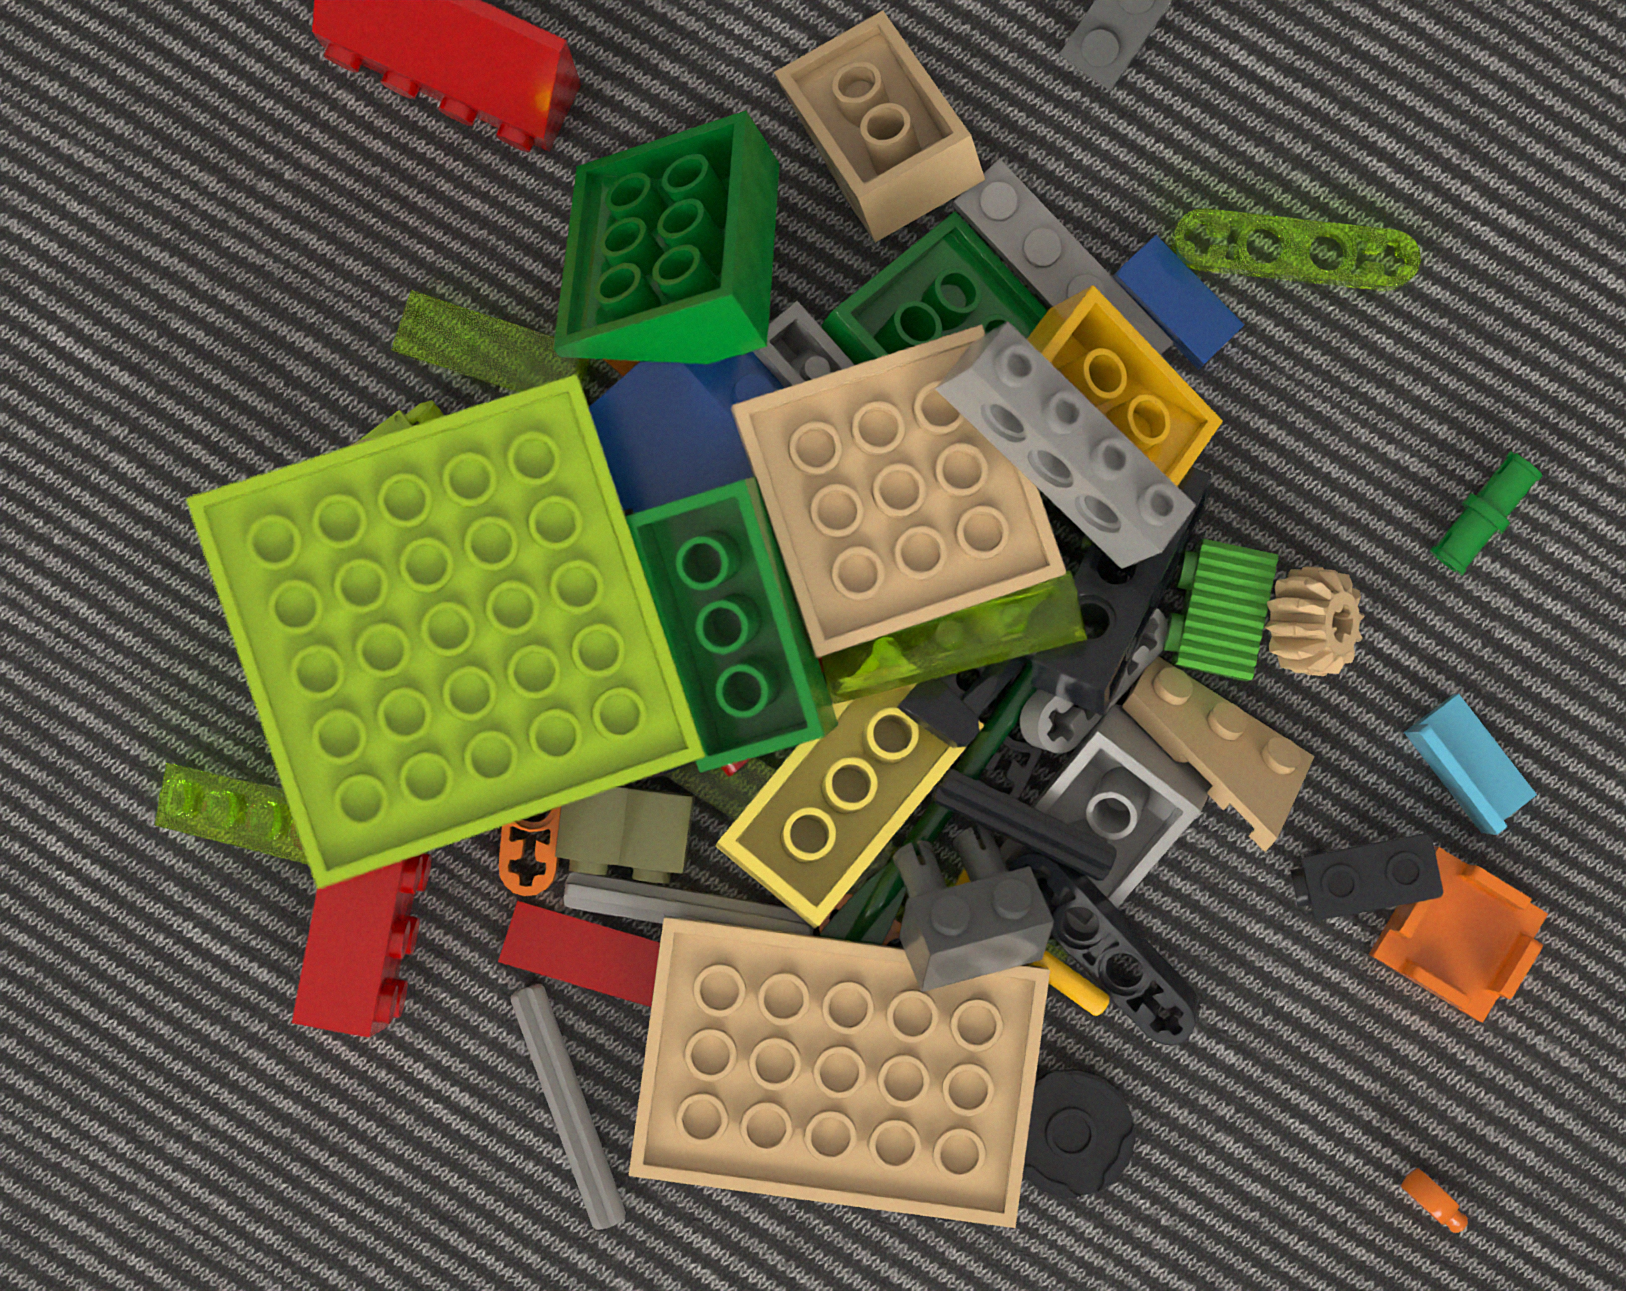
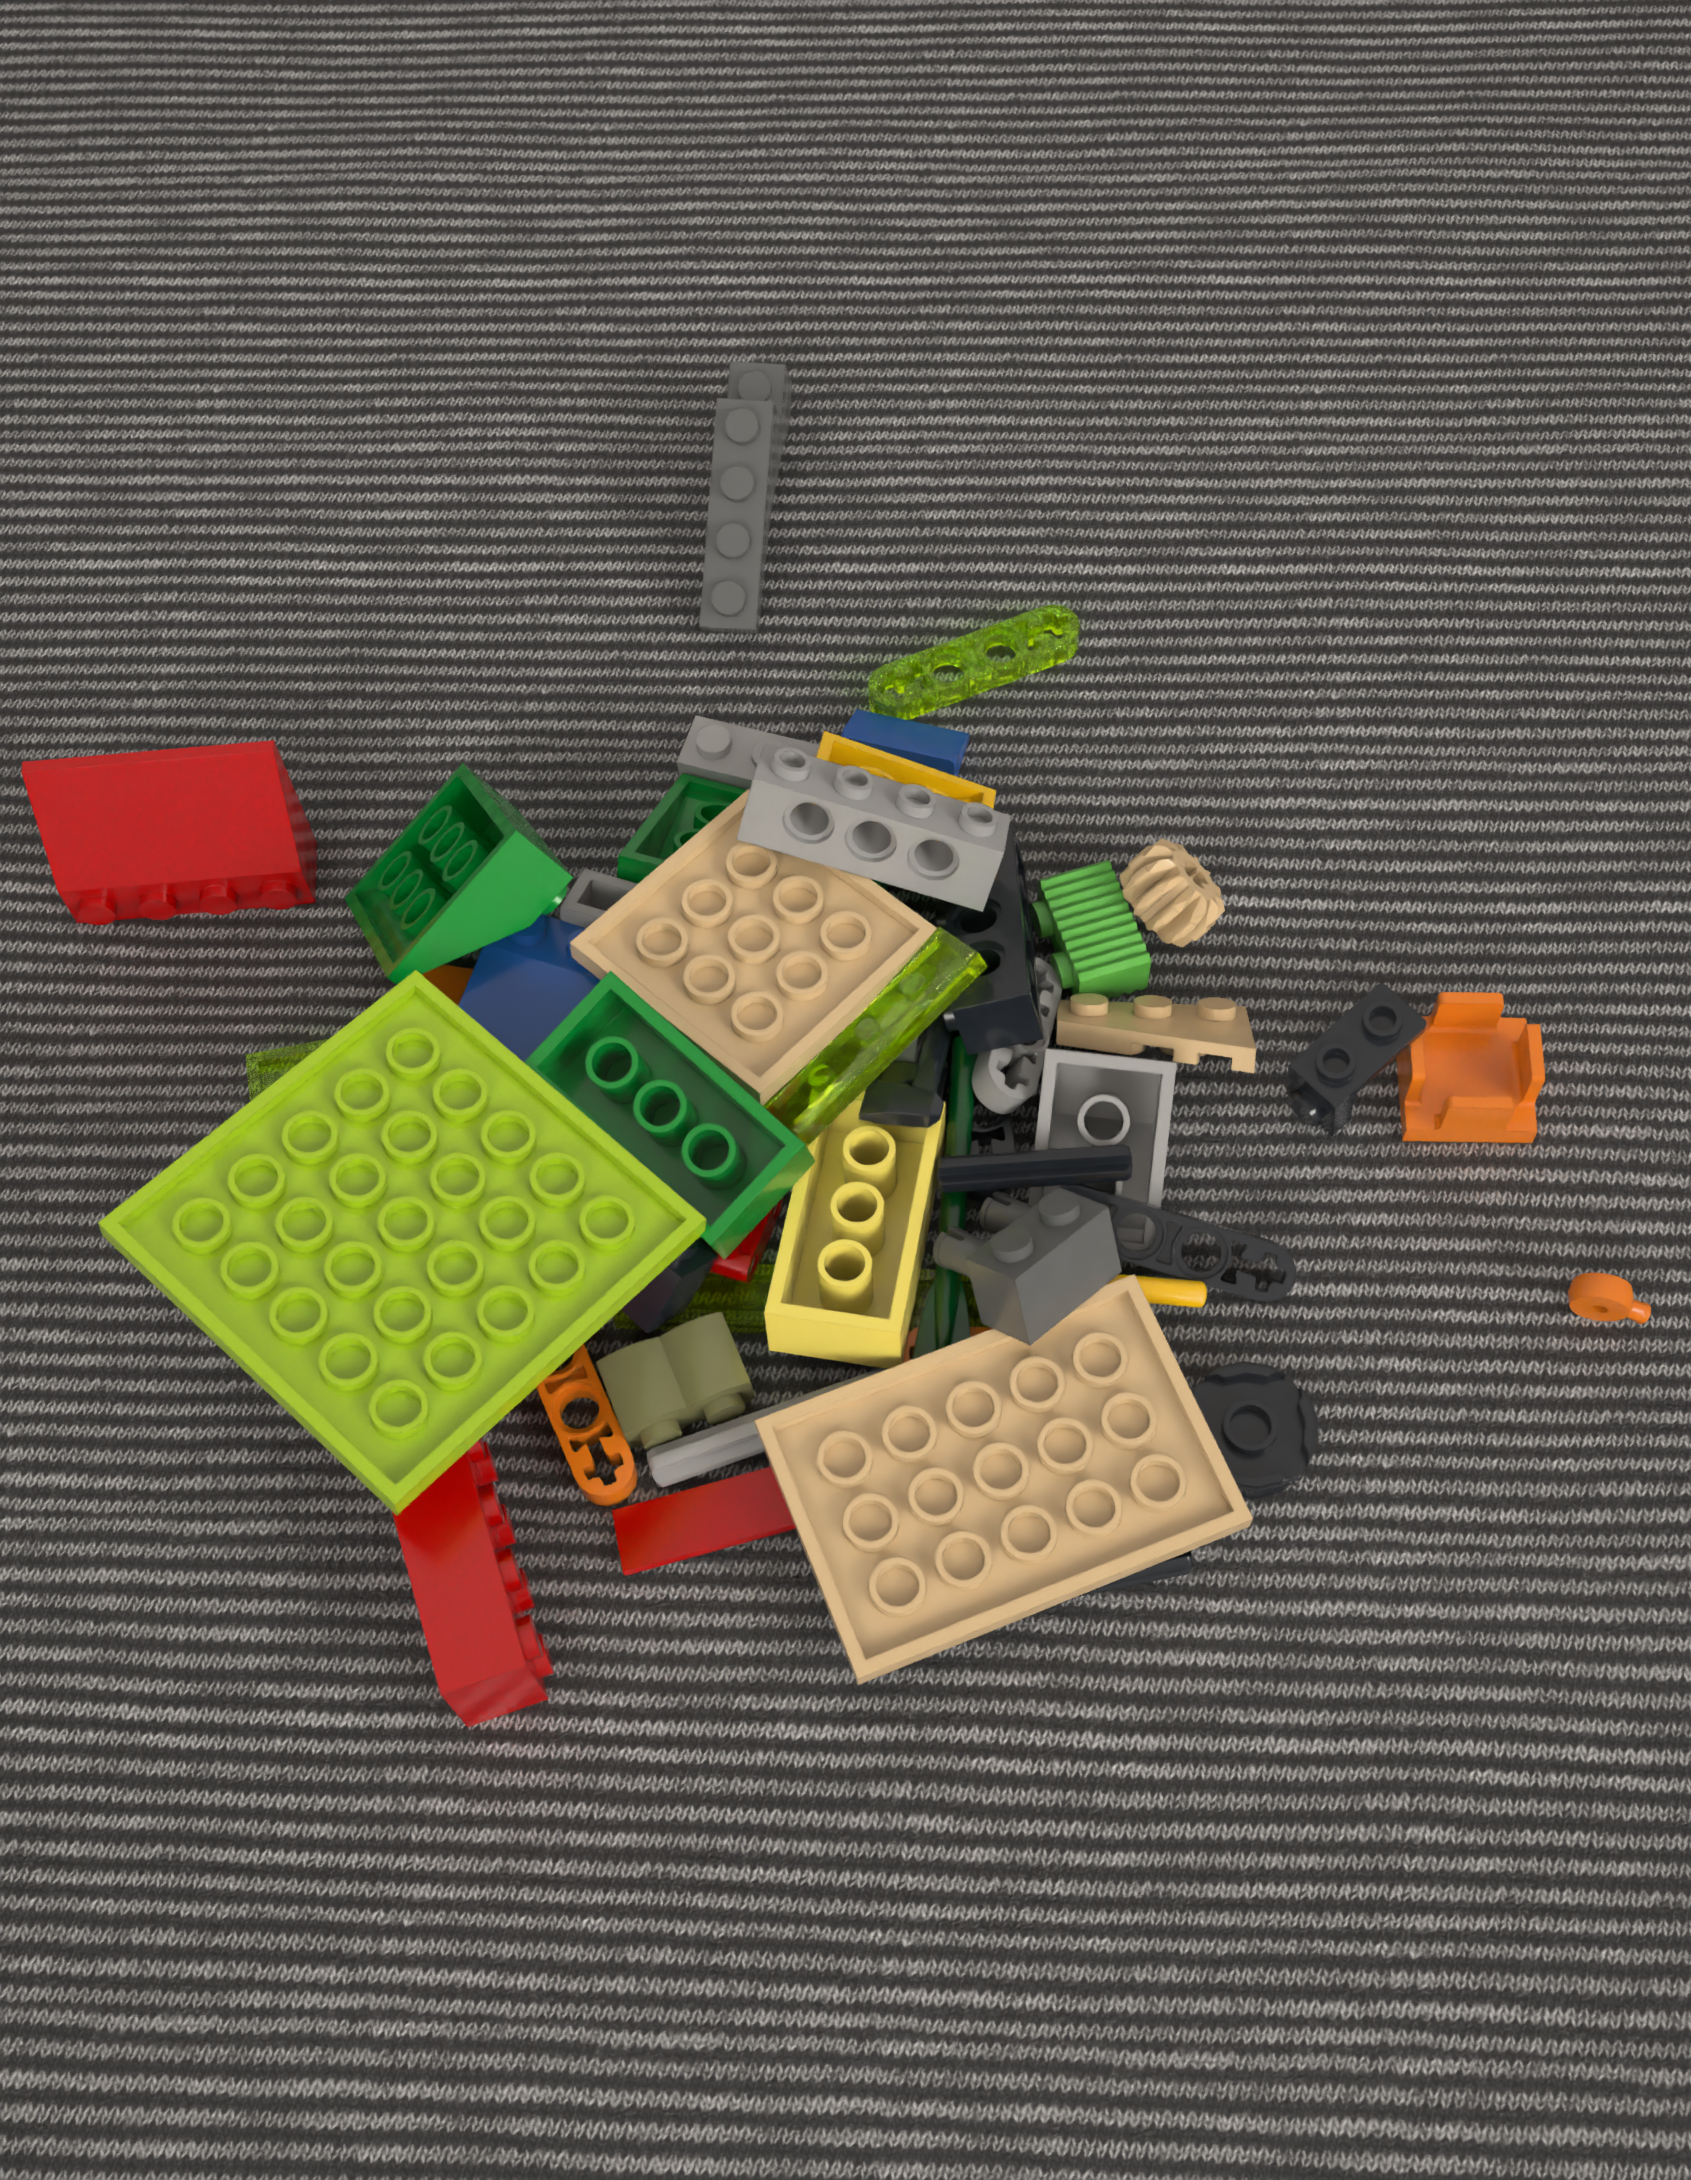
camera: 25 degrees left, 25 degrees down
(228, 811) = (300, 1549): clear neon green plate -> none
(568, 1106) = (766, 1671): light grey axle -> none
(881, 126) = (588, 739): tan slope -> none
(1470, 764) = (1376, 945): medium azure panel -> none
(1486, 513) = (1254, 759): green pin -> none

